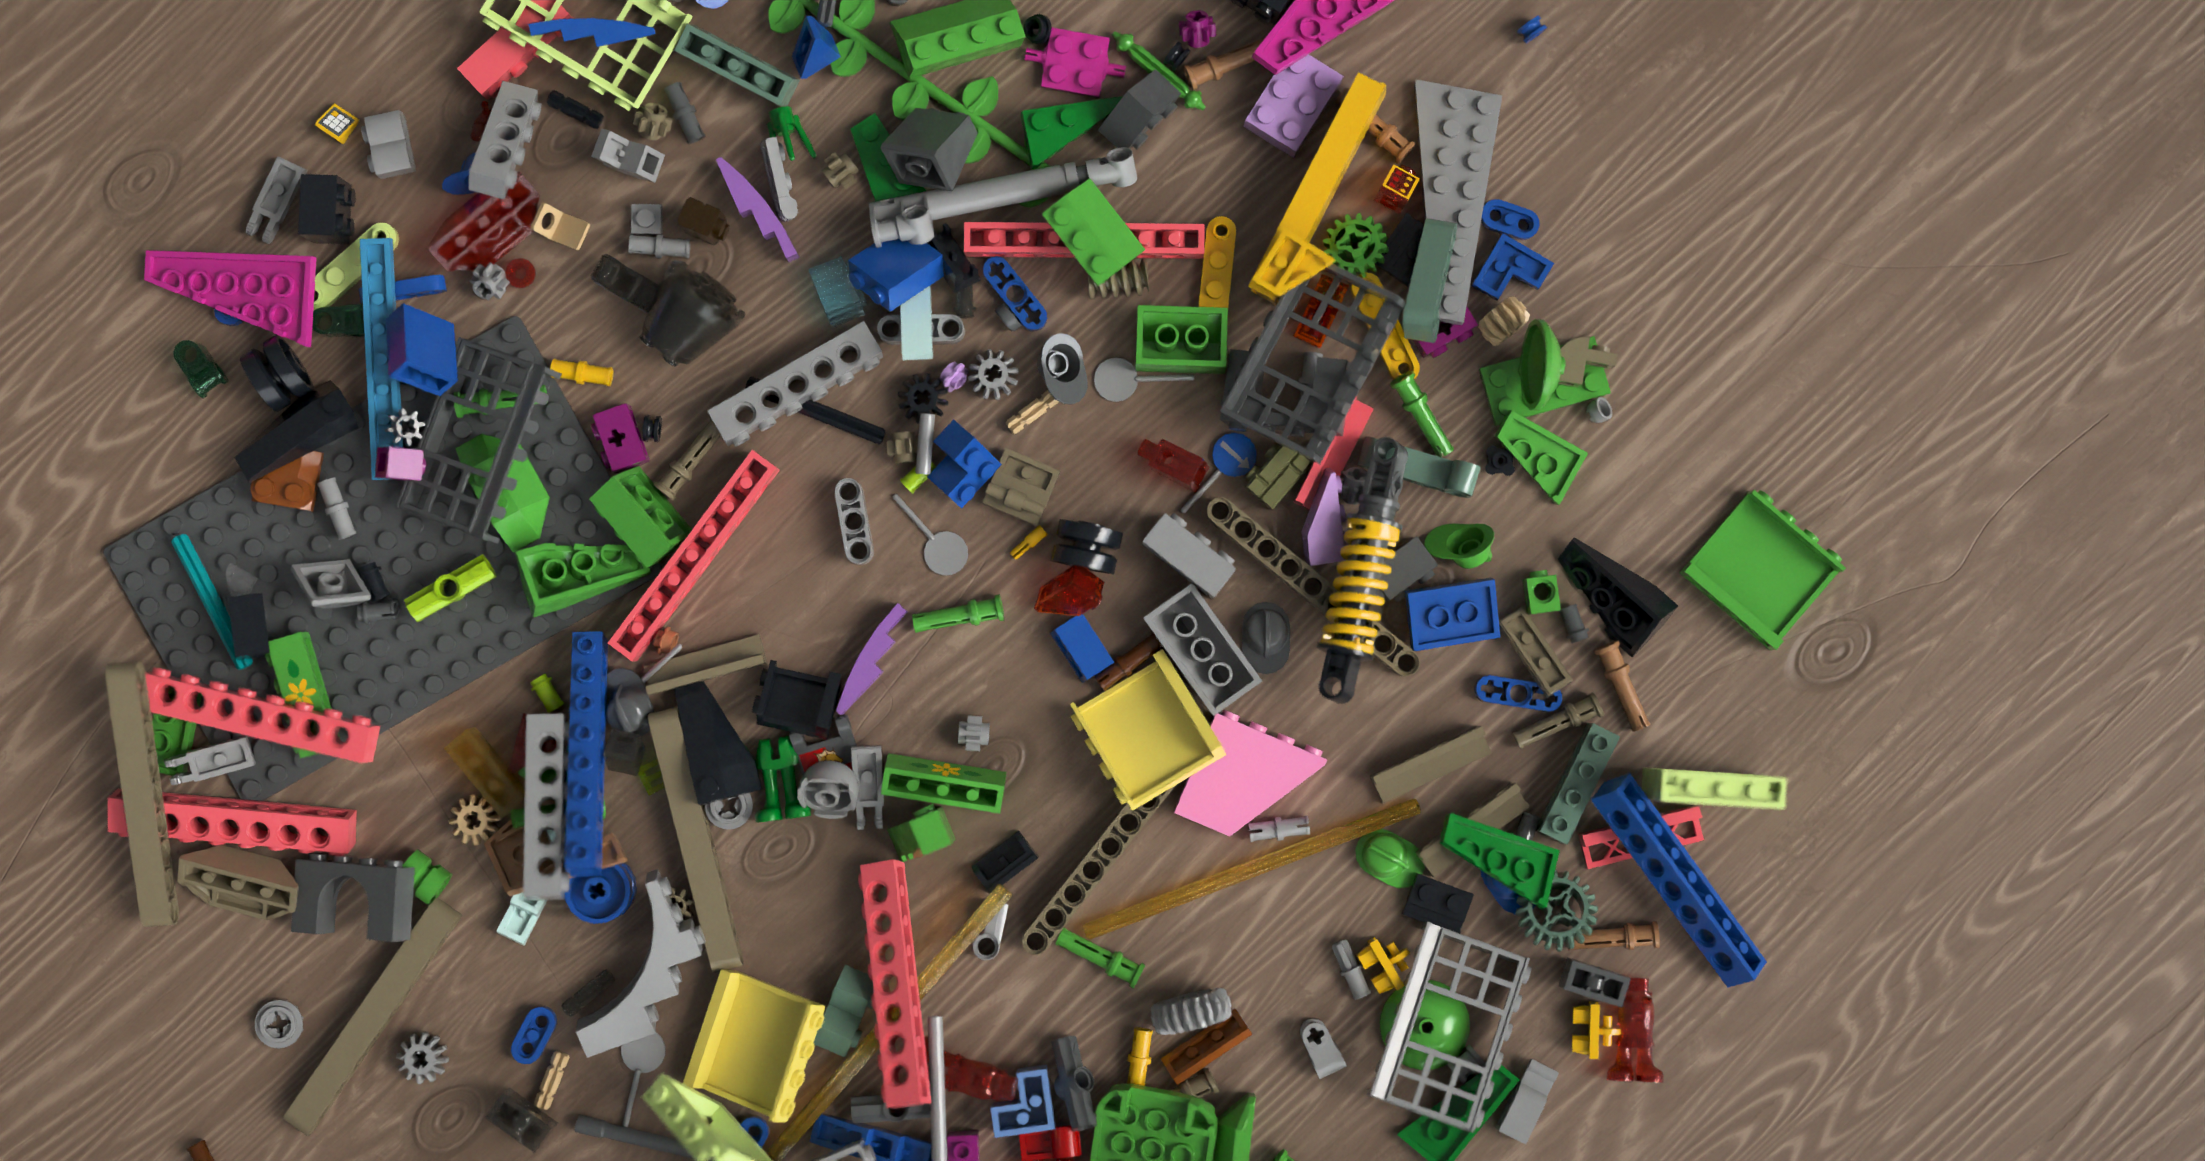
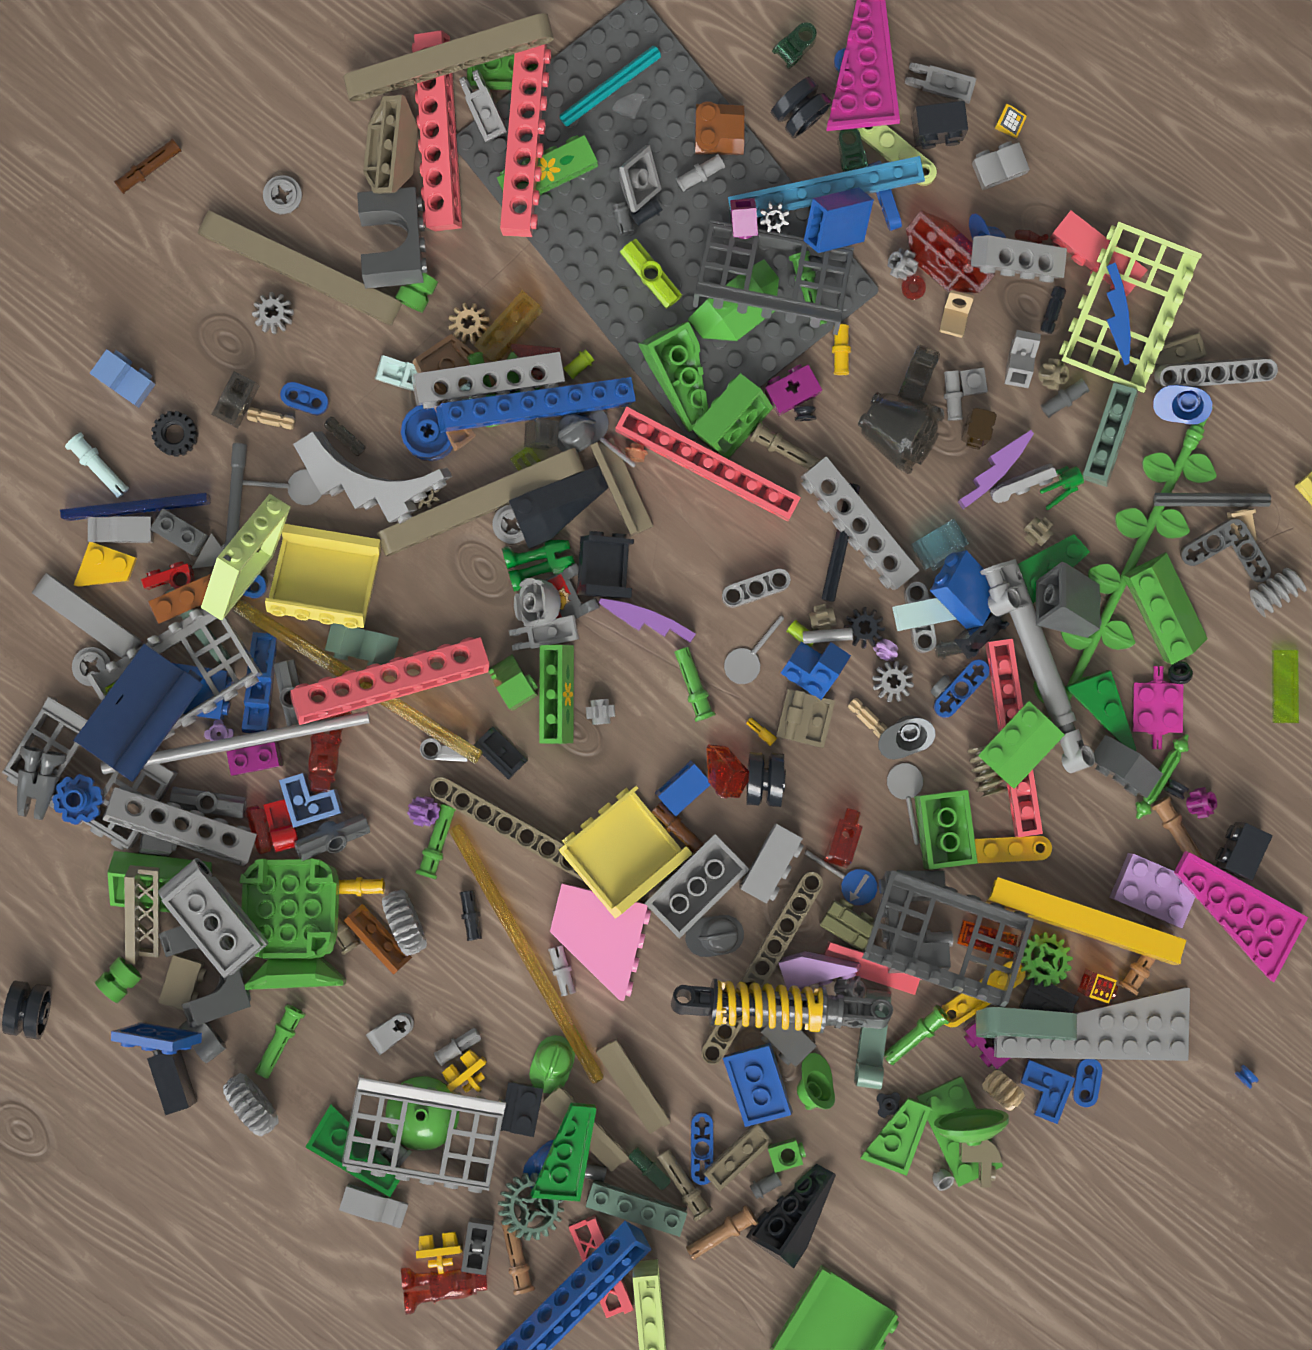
camera: 85 degrees right, 0 degrees up
(248, 626) = (595, 119): black hinge -> none
(299, 430) = (758, 132): black wedge -> none
(814, 48) = (1134, 494): blue slope -> none
(1060, 967) = (423, 811): none -> medium lavender gear
(1195, 929) = (470, 915): none -> black pin
(1290, 264) = (1021, 909): yellow wing -> none
(1533, 760) = (649, 1168): none -> clear green axle

